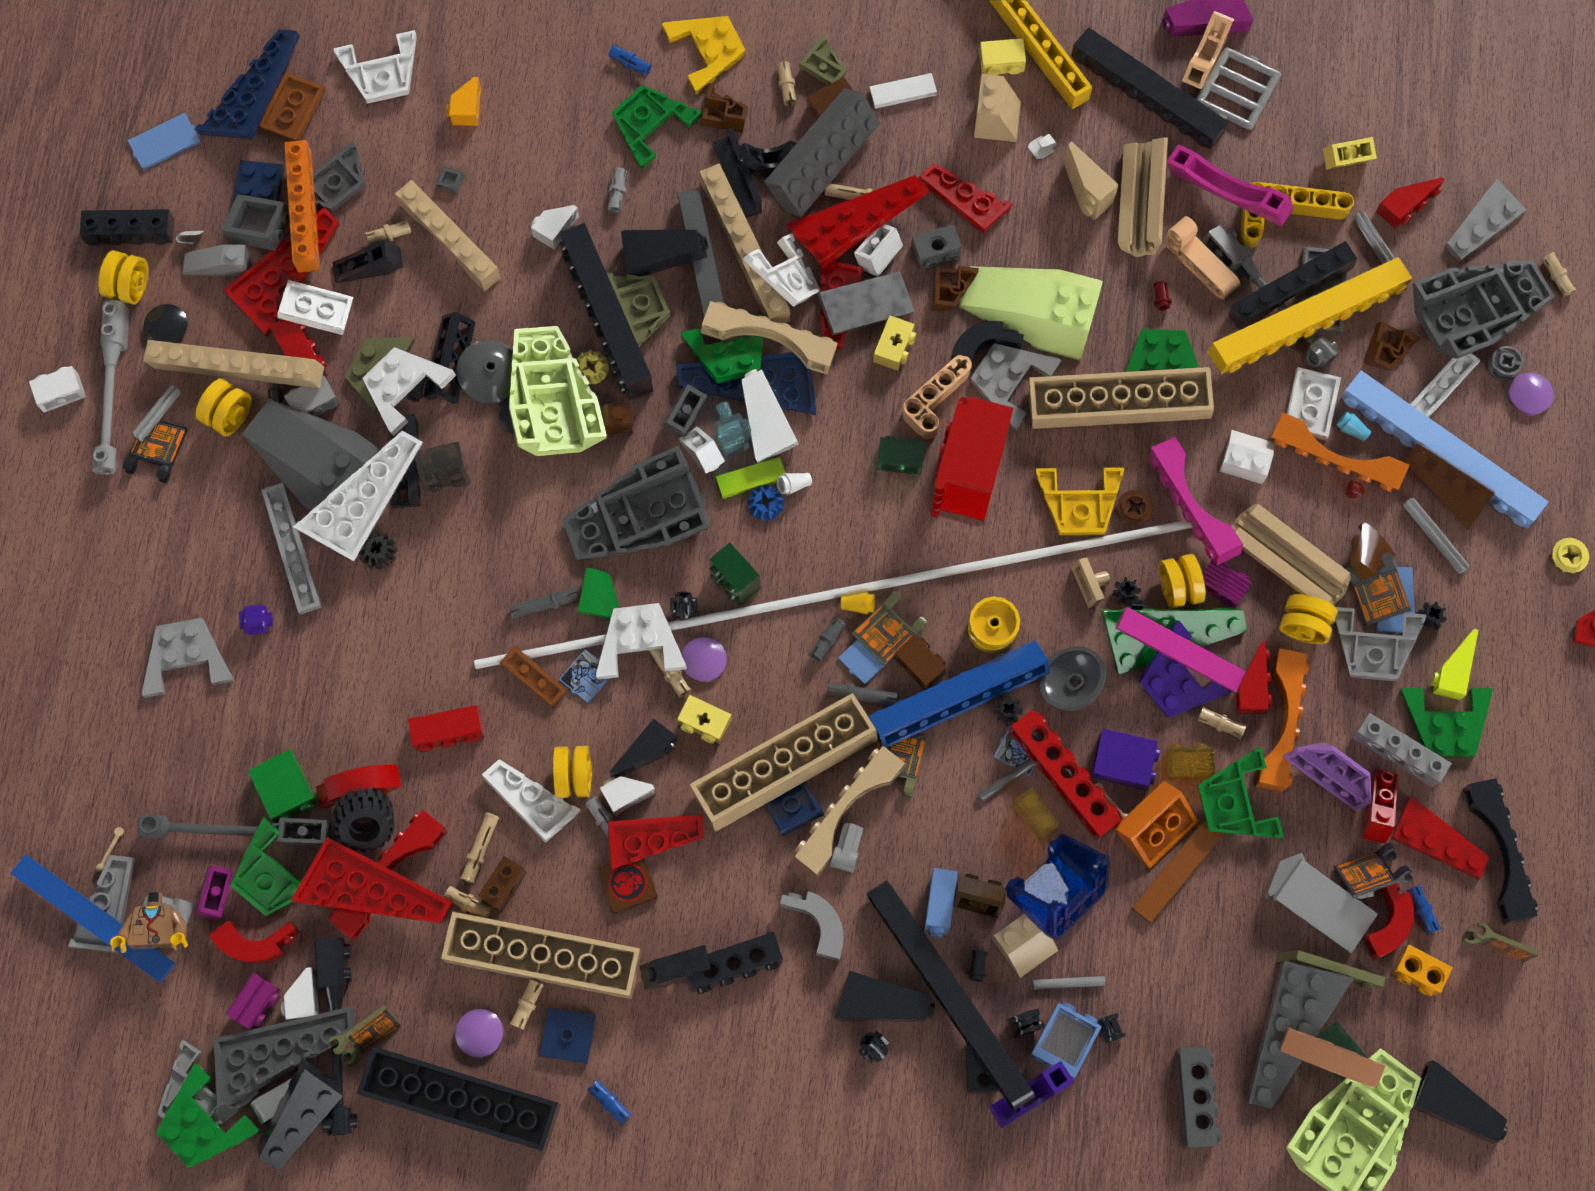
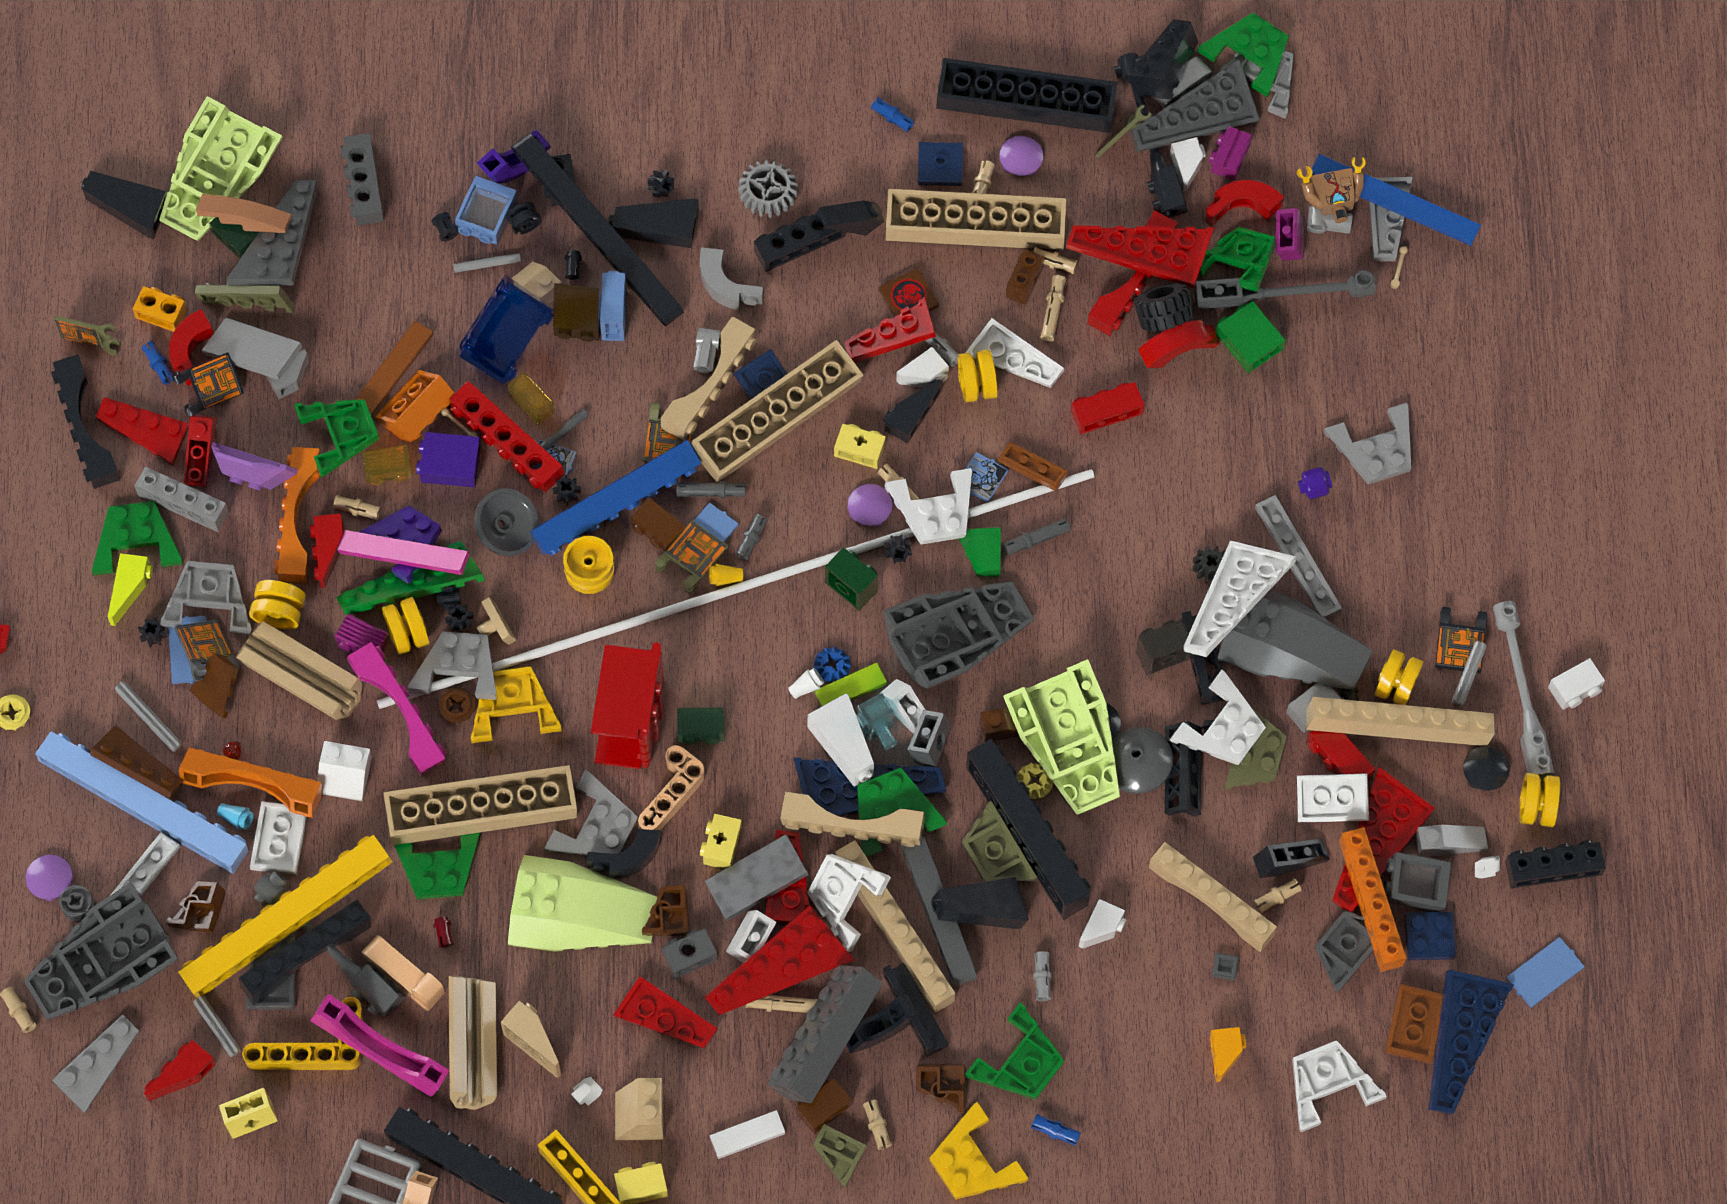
camera: 170 degrees right, 5 degrees down
(769, 1031) = (782, 194): none -> light grey gear
(1128, 552) = (458, 656): none -> light grey wing

